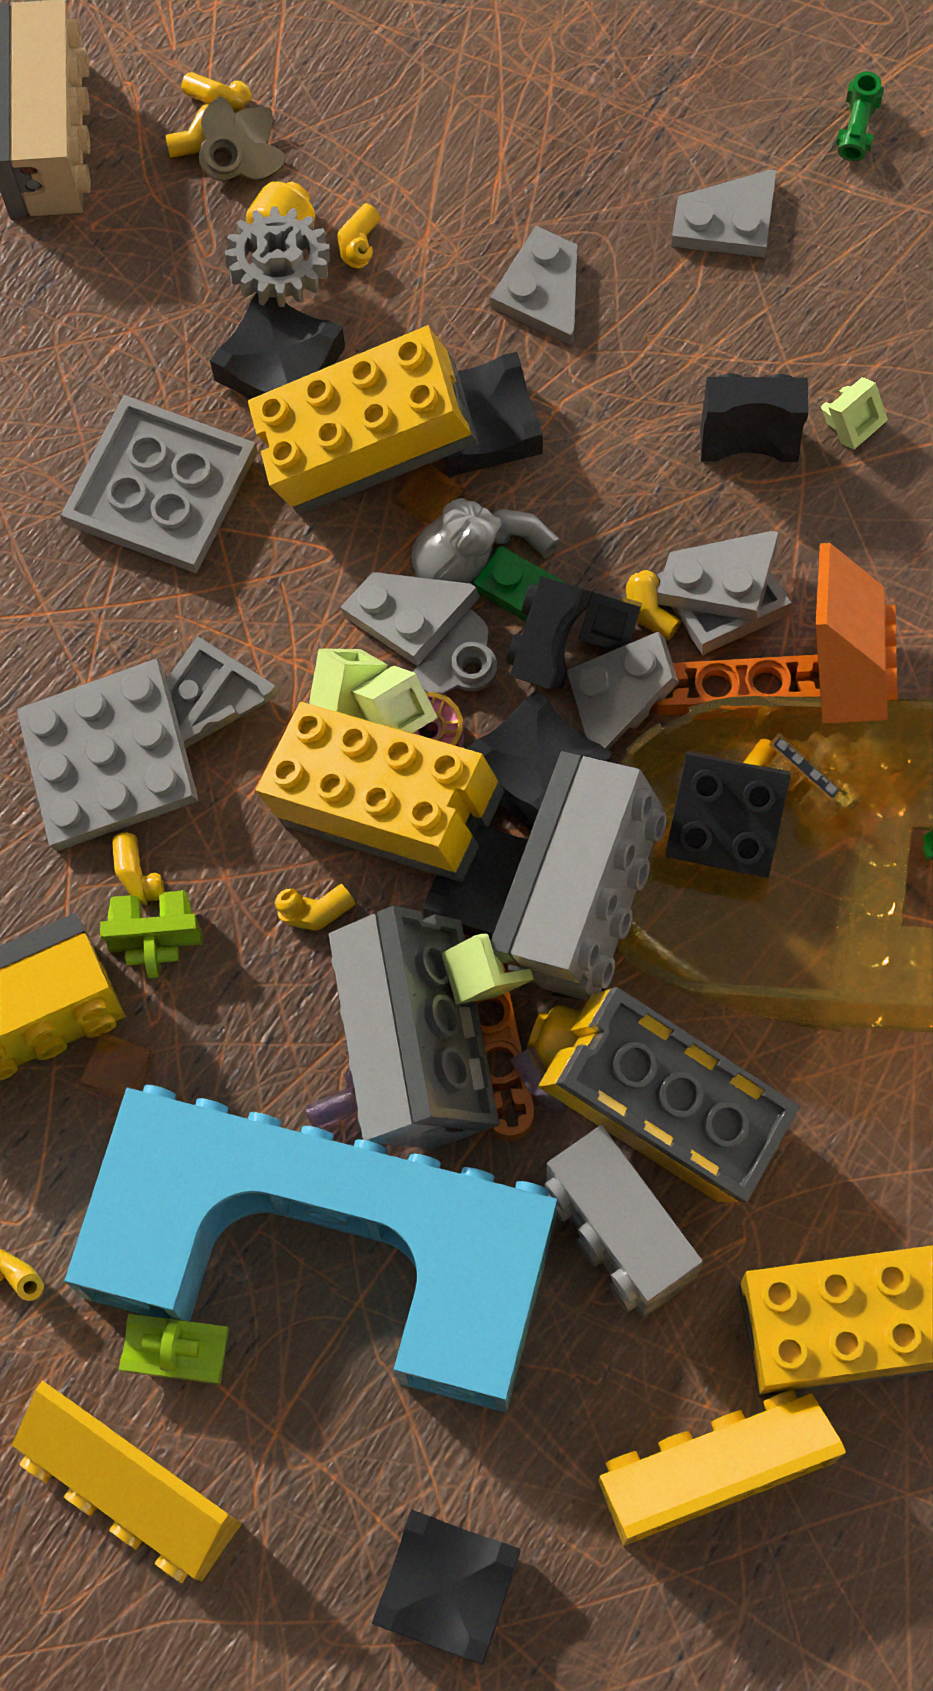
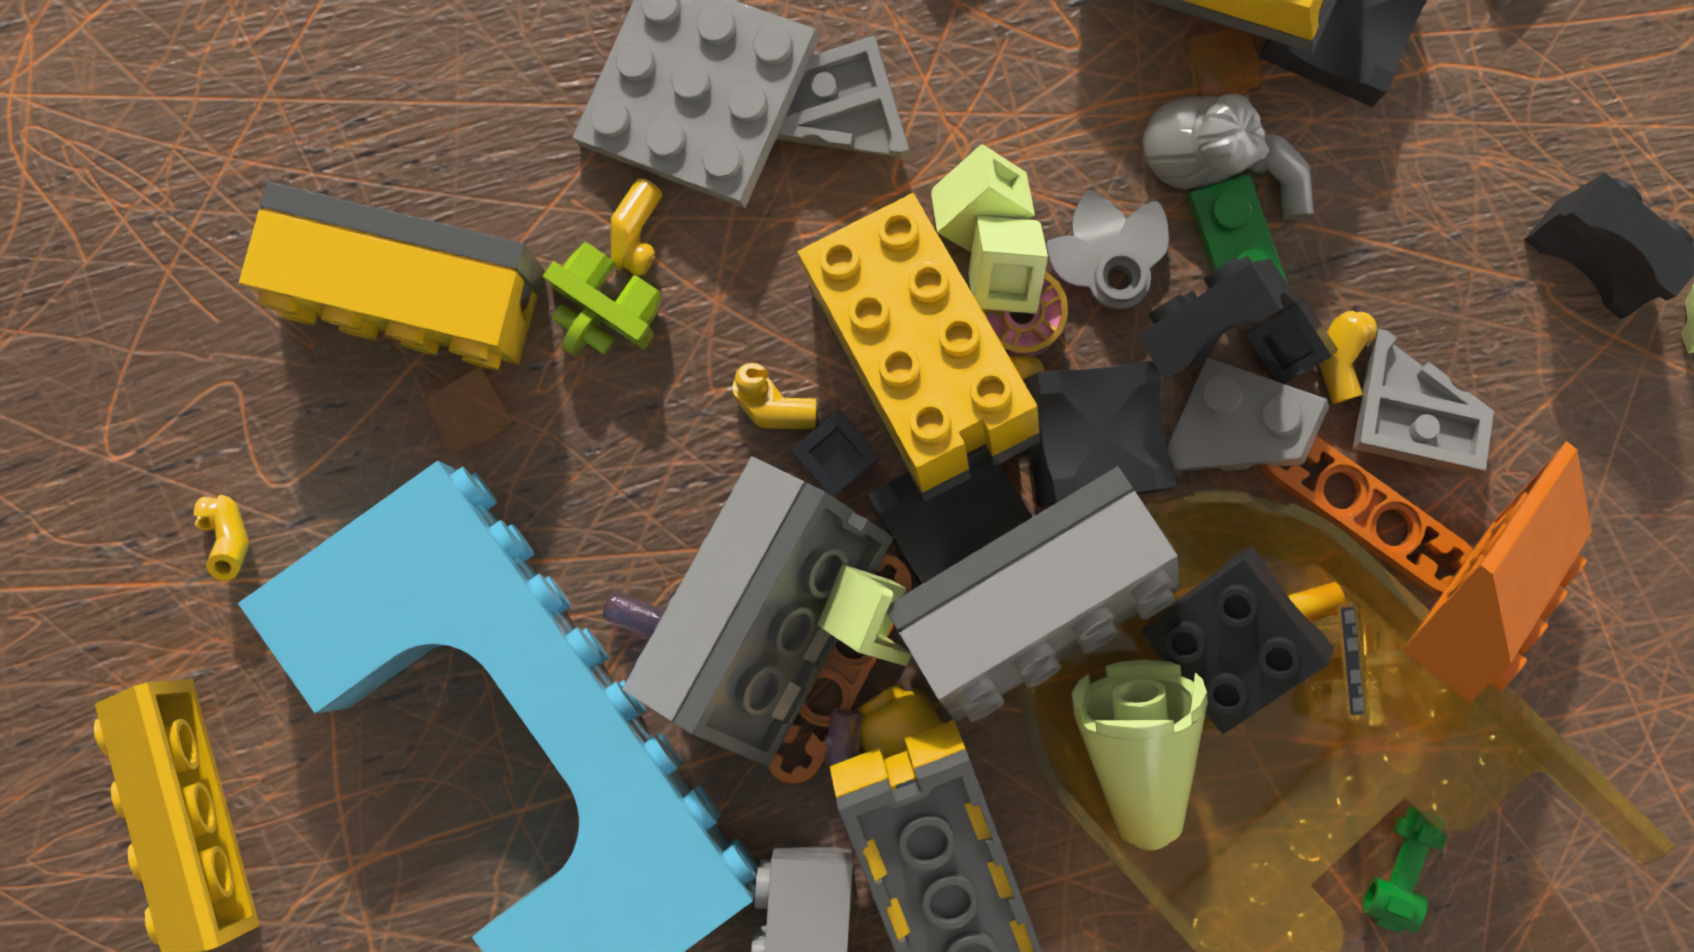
camera: 30 degrees right, 15 degrees up
(174, 1349) = (319, 744): lime hips -> none
(377, 894) = (835, 454): none -> black plate
(409, 611) = (1103, 171): light grey wing -> none
(720, 576) = (1438, 386): light grey wing -> none
(726, 921) = (1143, 744): none -> yellowish green cone

